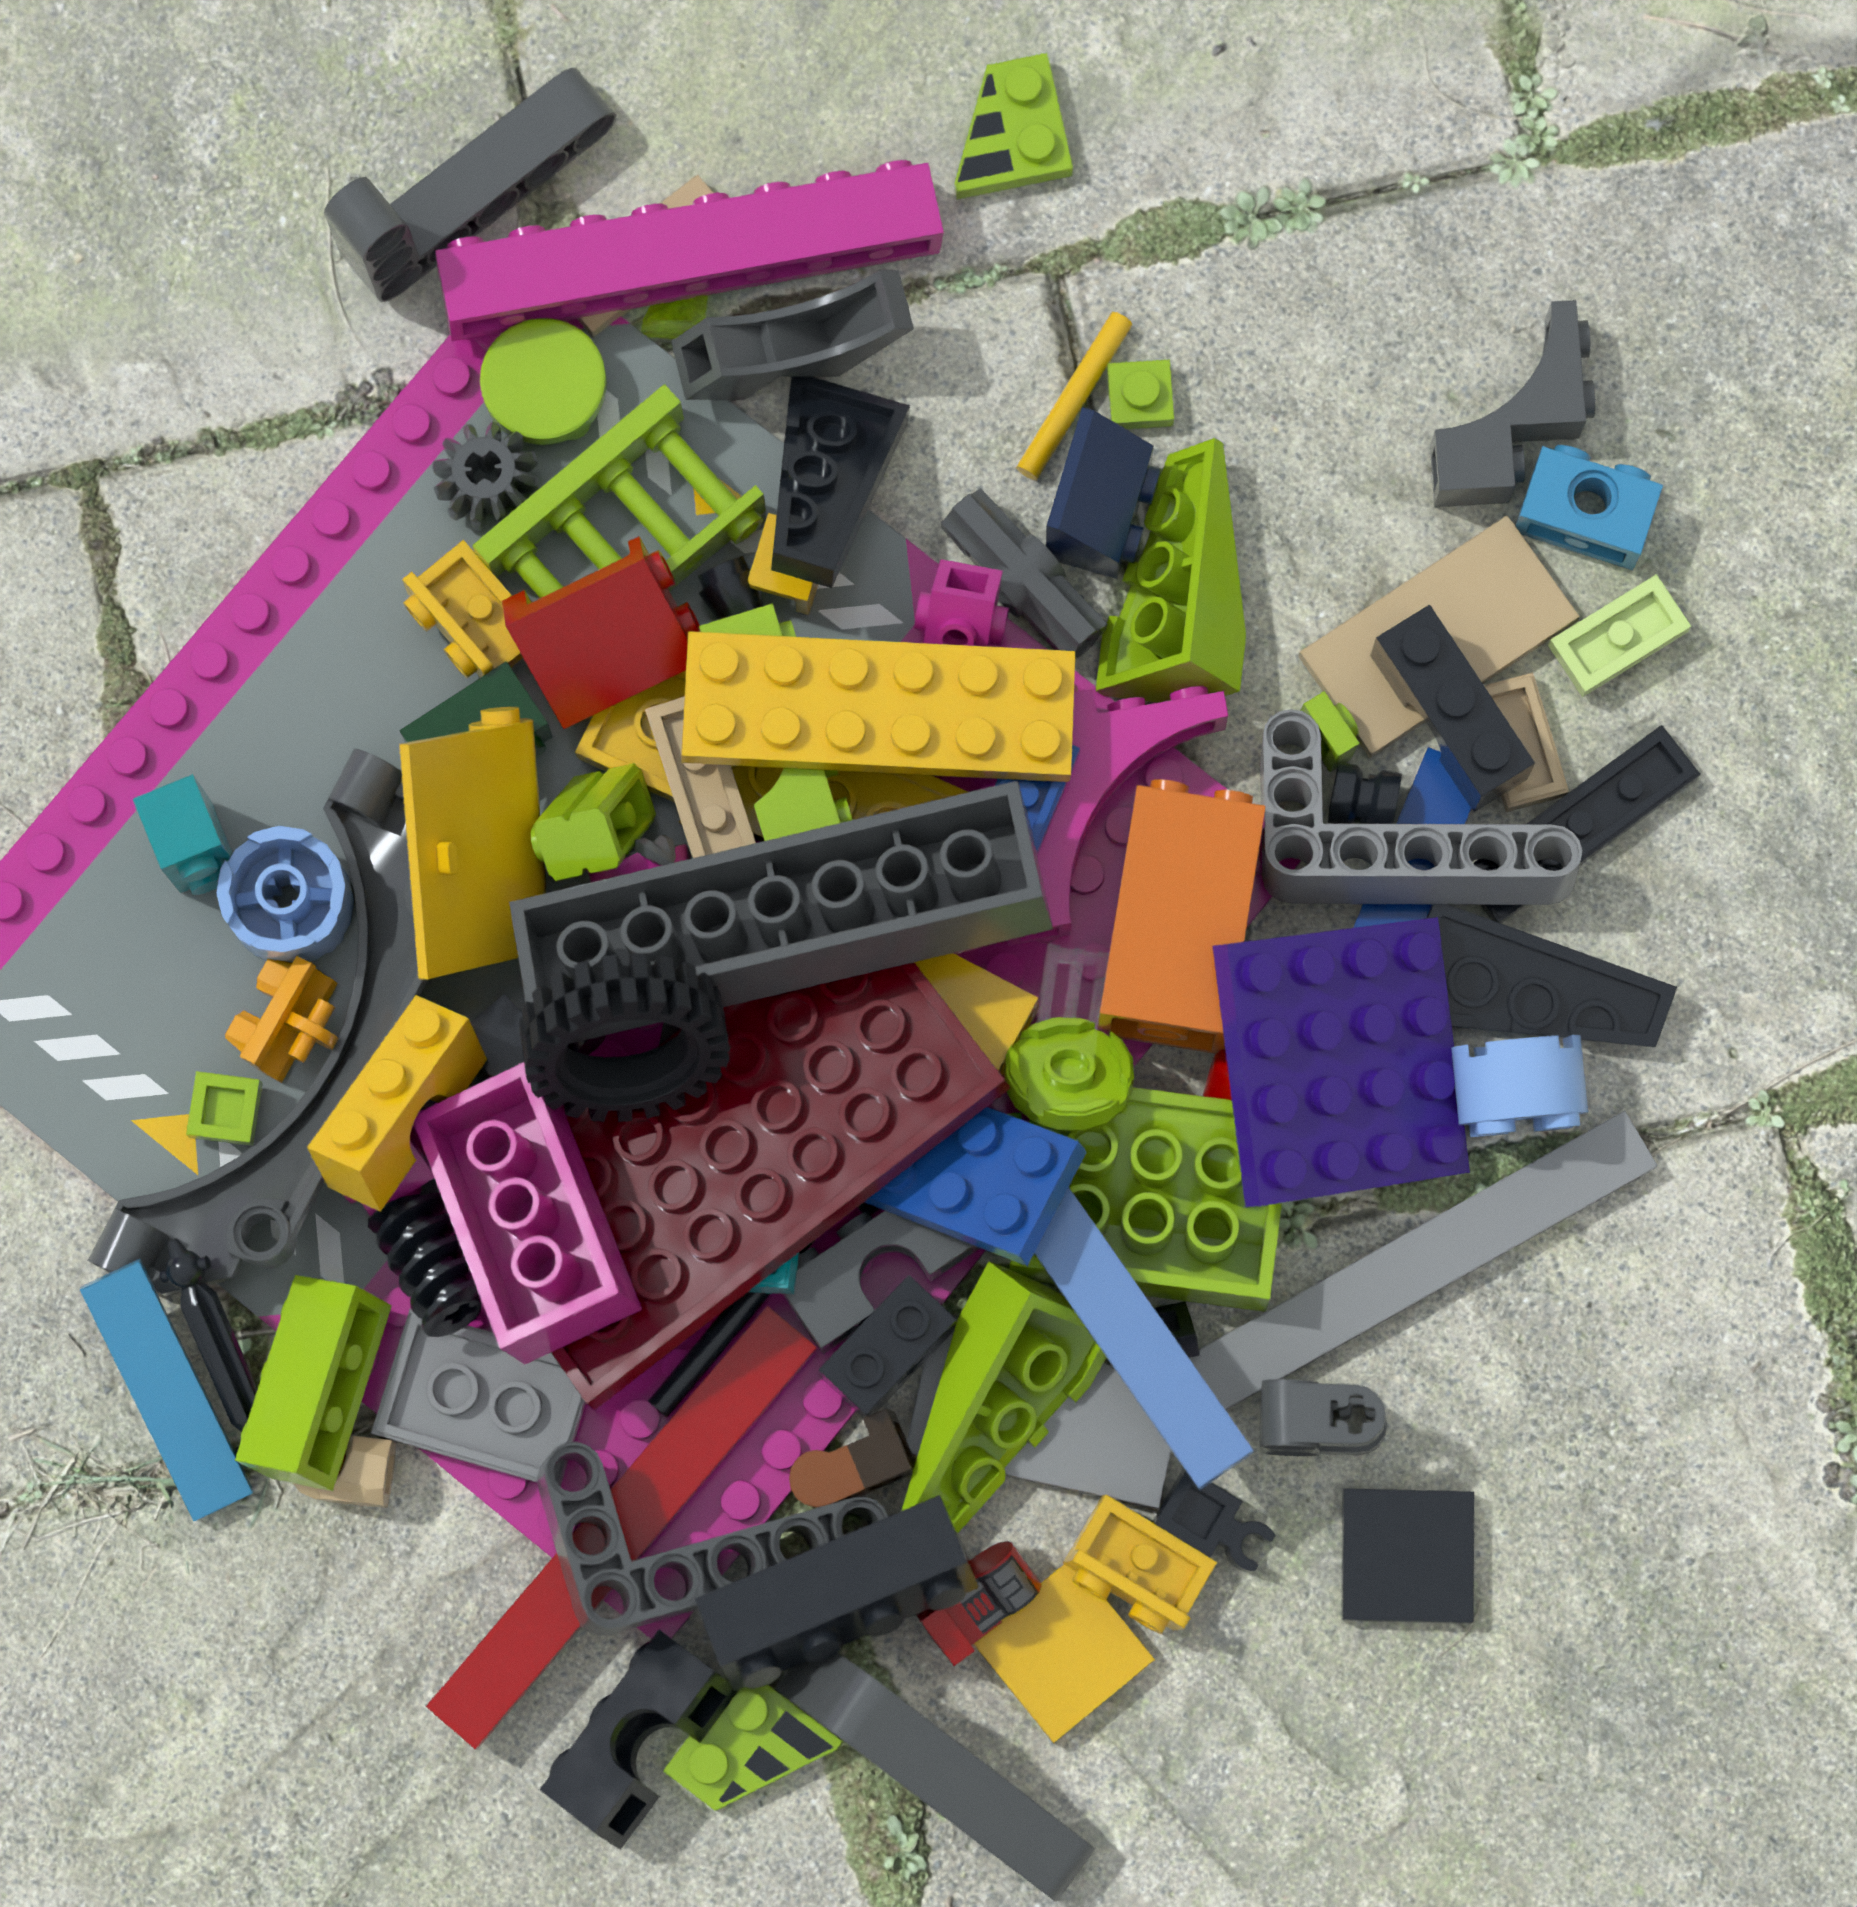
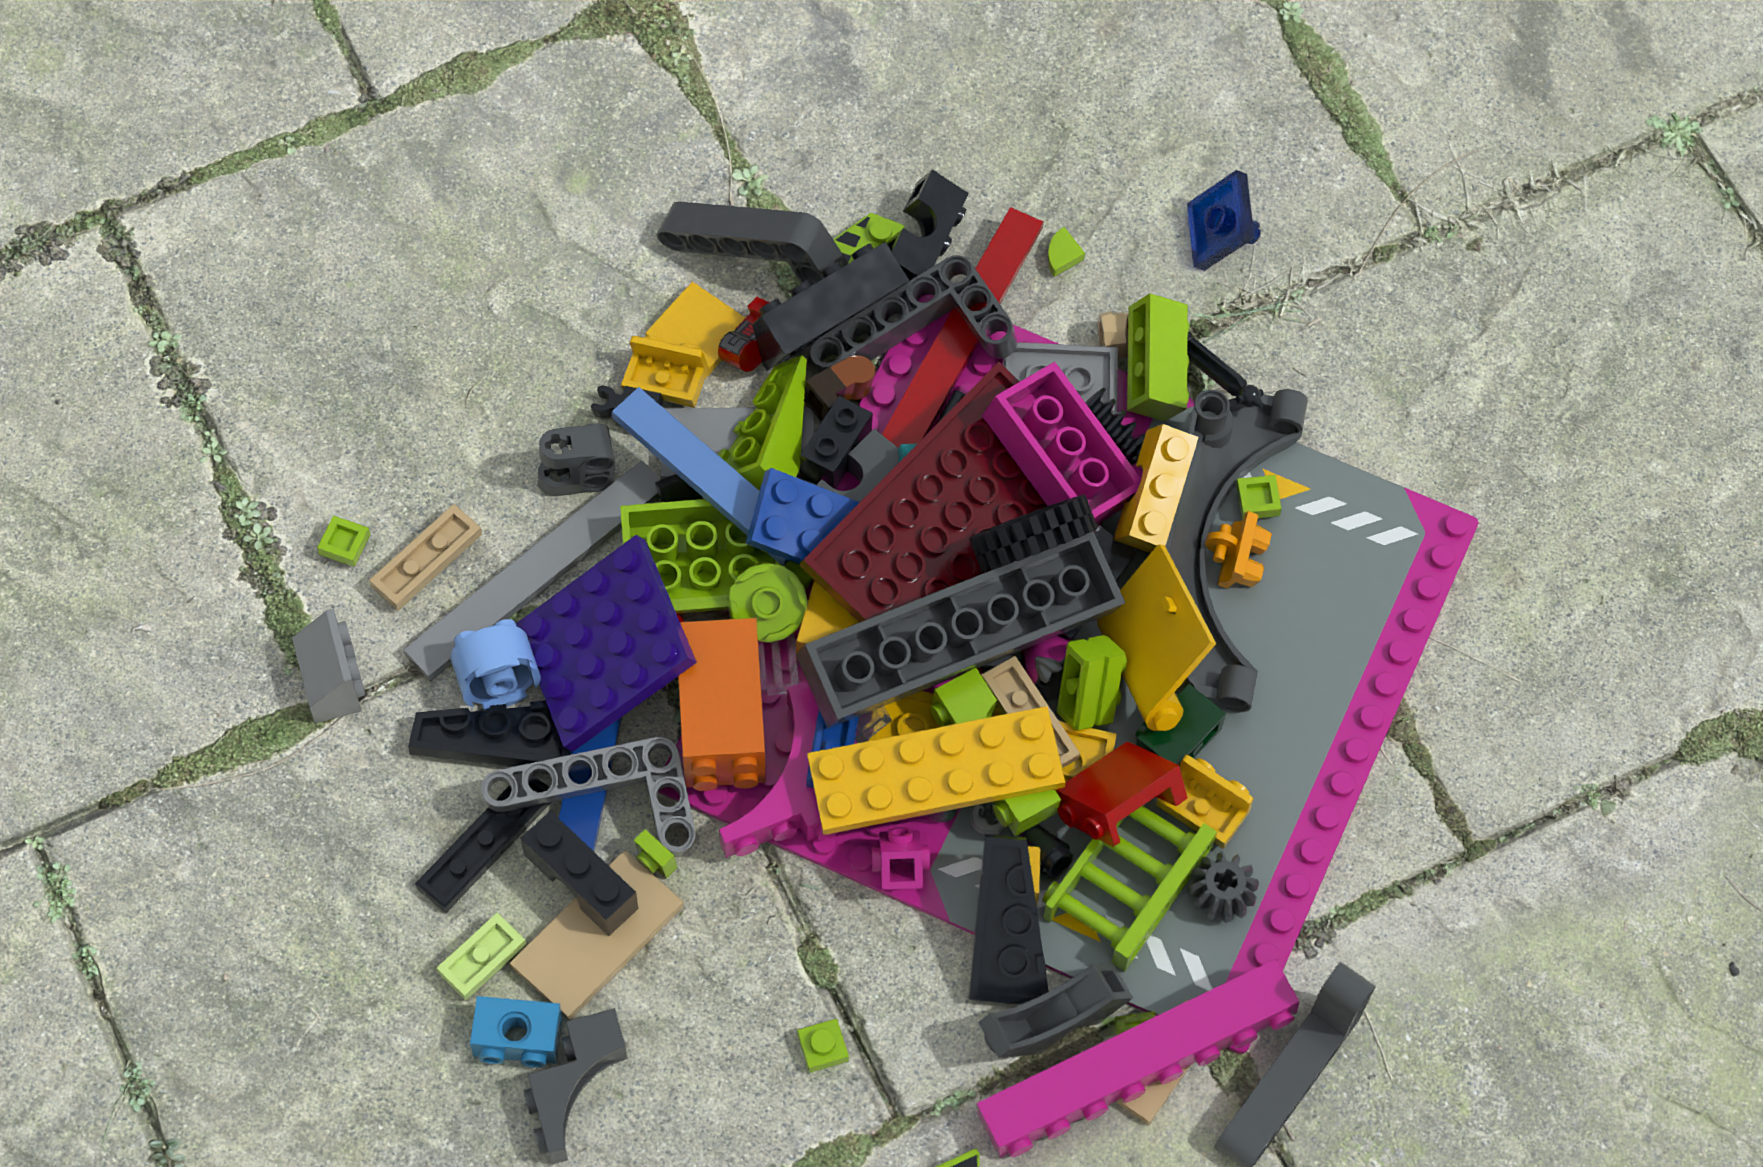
camera: 160 degrees right, 15 degrees down
(121, 1631) = (1221, 220): none -> clear blue tile
(166, 1389) = (1242, 346): dark azure tile -> none
(185, 834) = (1332, 625): teal brick -> none
(259, 870) = (1262, 610): light blue brick -> none
(404, 1659) = (1063, 252): none -> lime tile
(543, 381) = (1205, 954): lime tile -> none
(1031, 574) = (869, 908): dark grey piece -> none
(1074, 396) = (865, 1035): yellow bar -> none
(1100, 496) = (831, 959): dark blue slope -> none
(1184, 595) = (764, 907): lime wedge -> none
(1369, 799) = (623, 818): black wheel -> none
(1407, 1556) = (510, 415): black tile -> none
(1524, 711) = (536, 893): tan tile -> none
(1594, 1321) = (425, 557): none -> tan plate
(1723, 1381) = (343, 541): none -> lime plate
(1783, 1144) = (328, 668): none -> light grey slope

